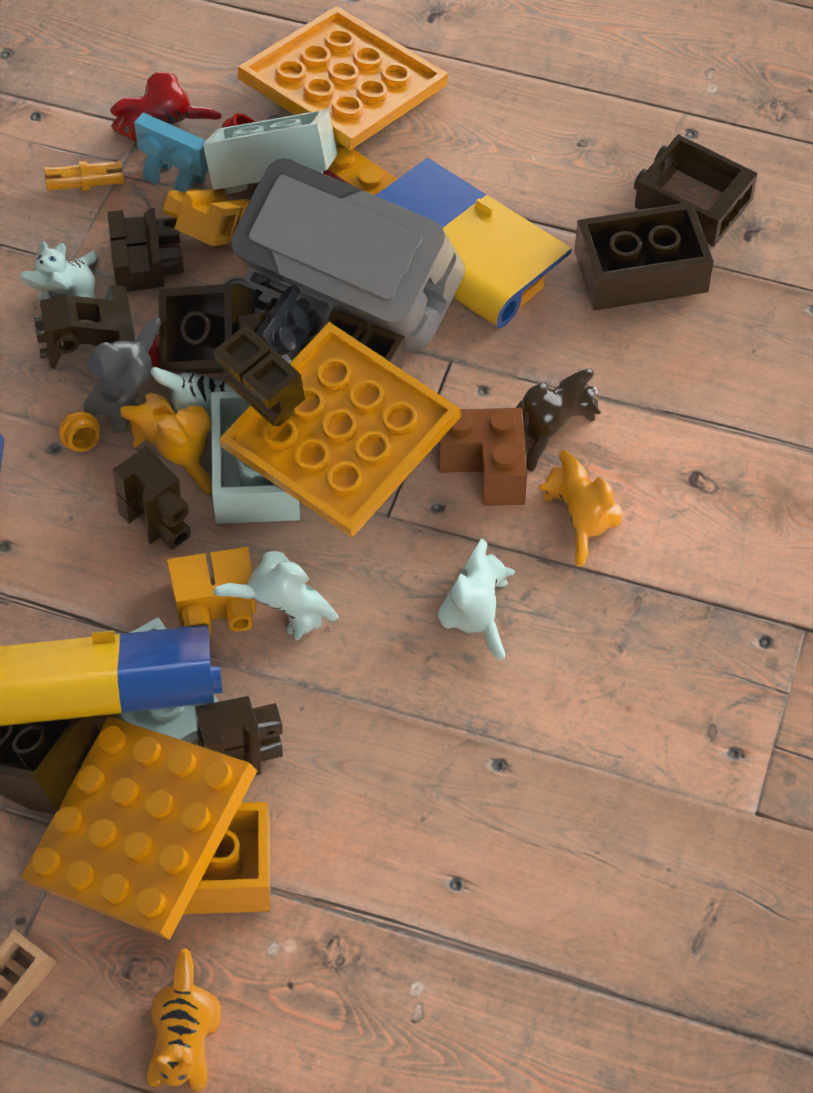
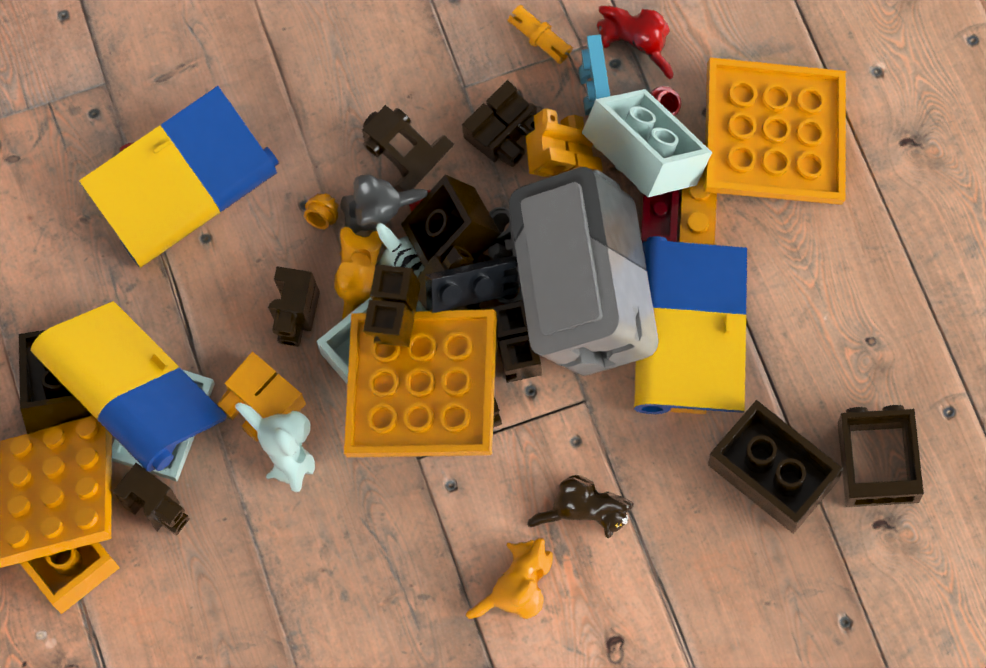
camera: 60 degrees right, 15 degrees up
(58, 276) = (433, 100): light aqua animal -> none
(473, 600) = (379, 567): light aqua animal -> none
(490, 444) = (520, 487): dark orange brick -> none

